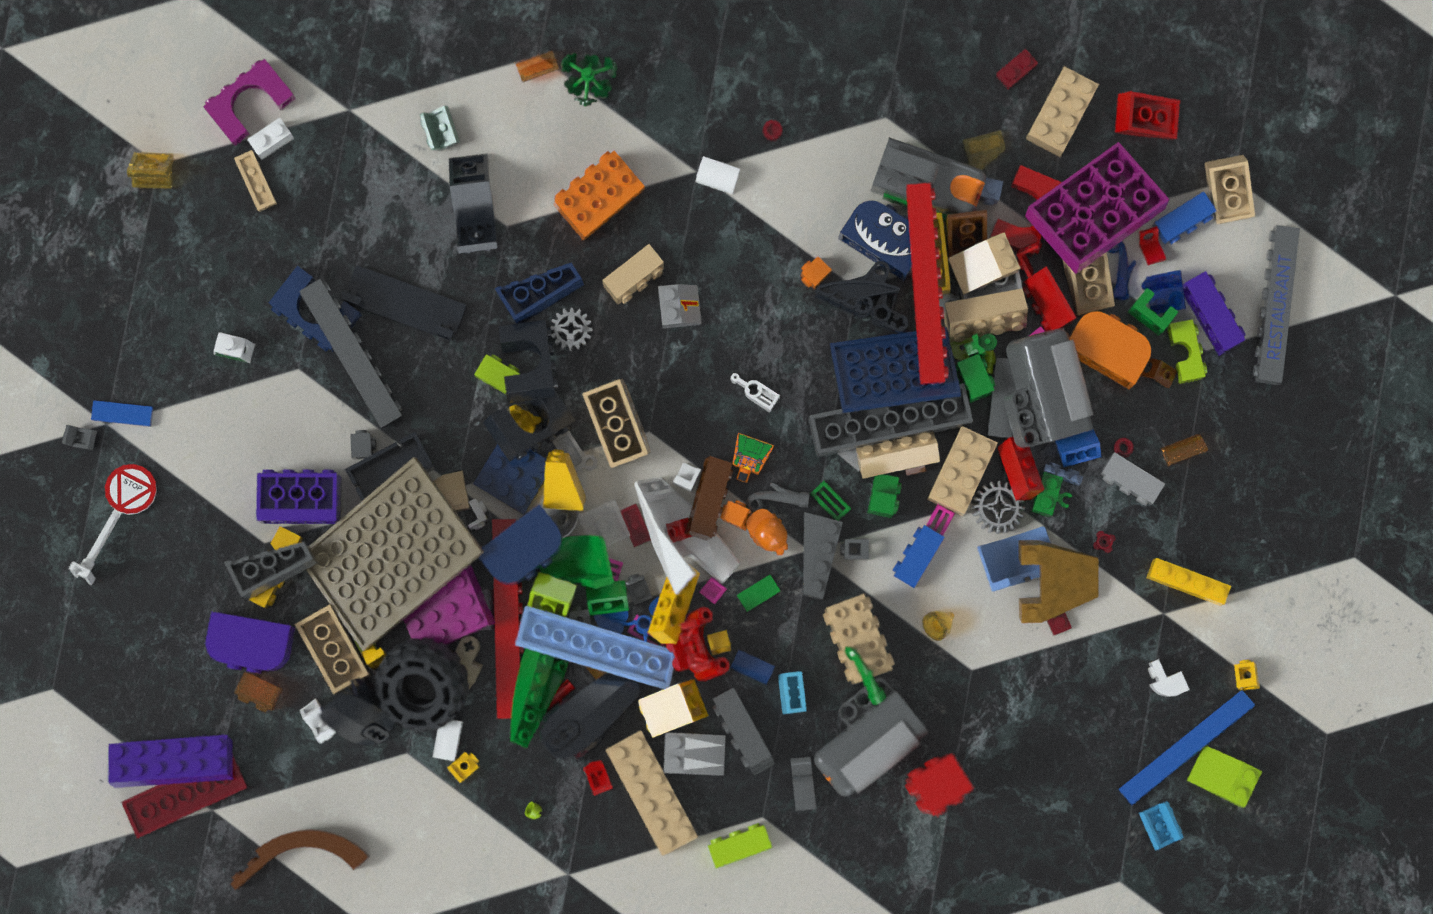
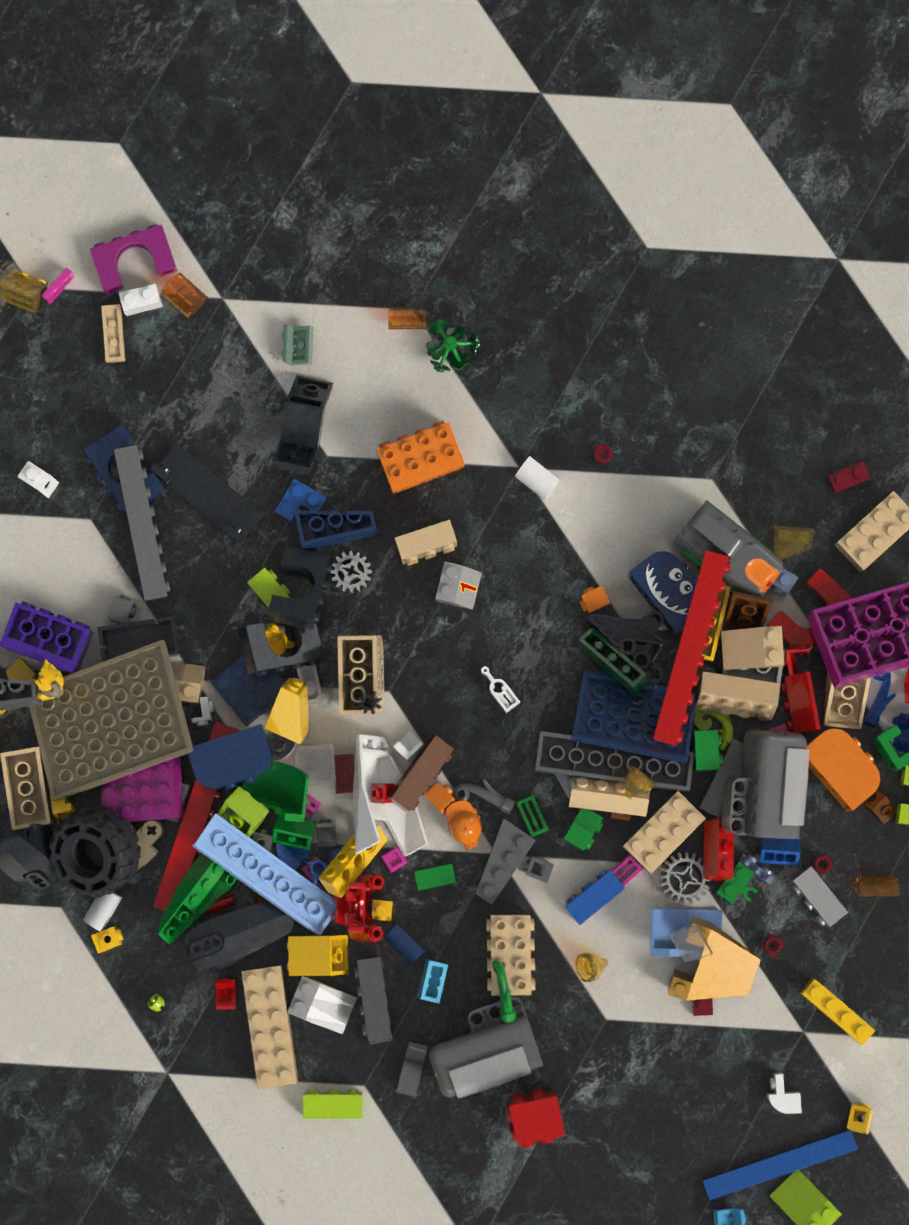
camera: 25 degrees right, 0 degrees up
(184, 153) = (58, 286): none -> dark pink tile
(310, 119) = (183, 295): none -> clear orange brick
(319, 537) = (49, 682): none -> yellow hair
(492, 274) = (298, 496): none -> blue plate
(642, 446) = (374, 705): none -> black gear
(750, 456) = (472, 748): torso -> none
(855, 324) = (613, 661): none -> dark green brick
(921, 432) = (637, 783): none -> clear yellow helmet
(981, 345) = (722, 722): green hips -> none
(1026, 565) = (690, 943): none -> clear piece

